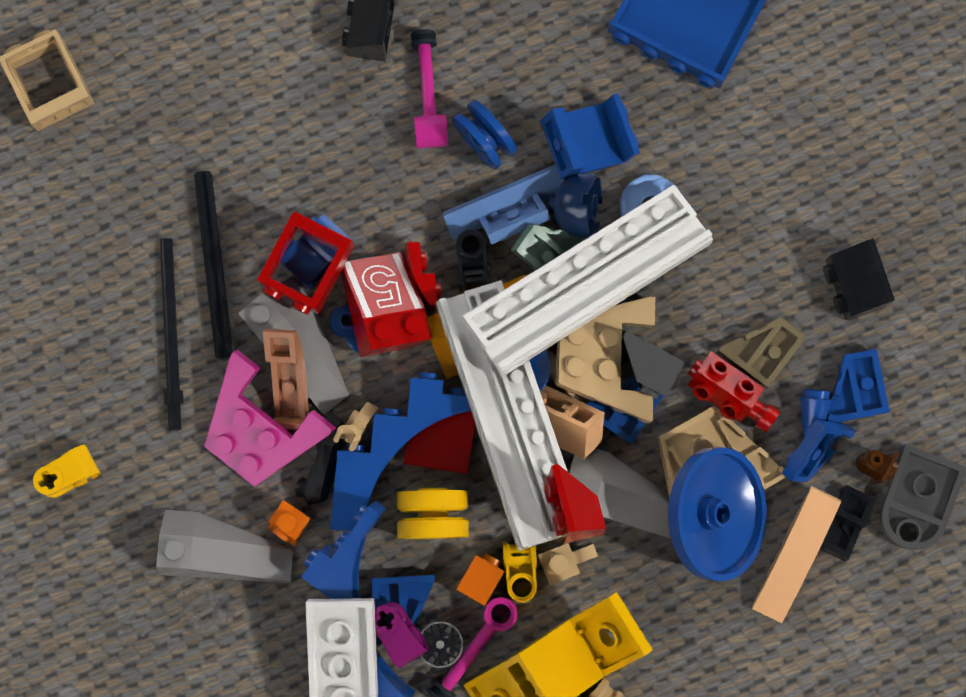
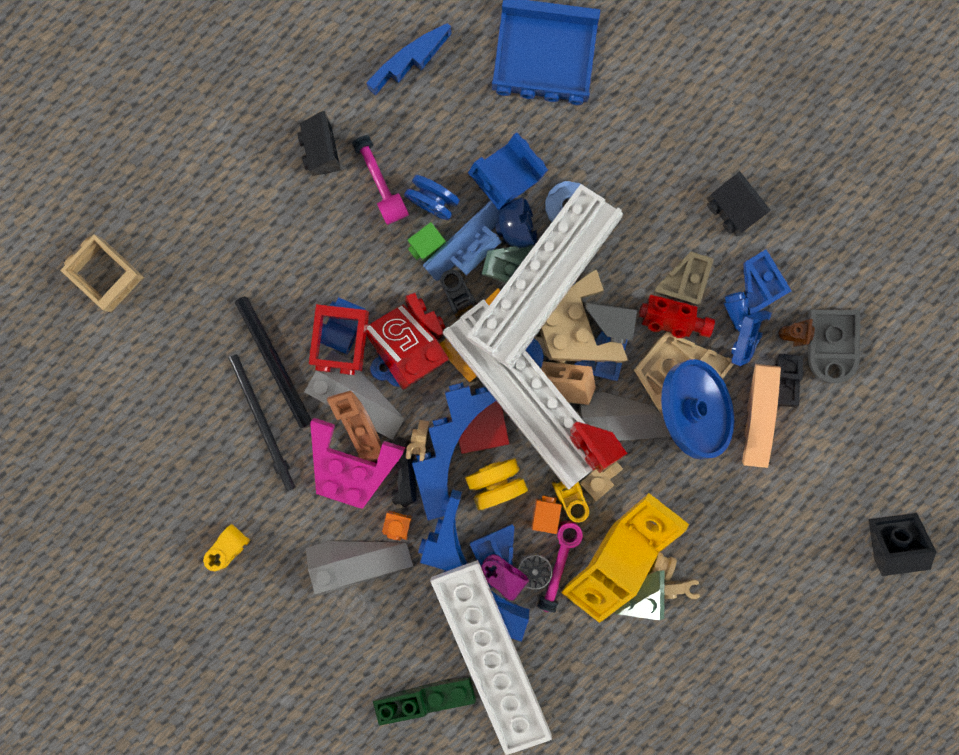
camera: 15 degrees left, 5 degrees up
(456, 186) = (425, 242): none -> bright green brick

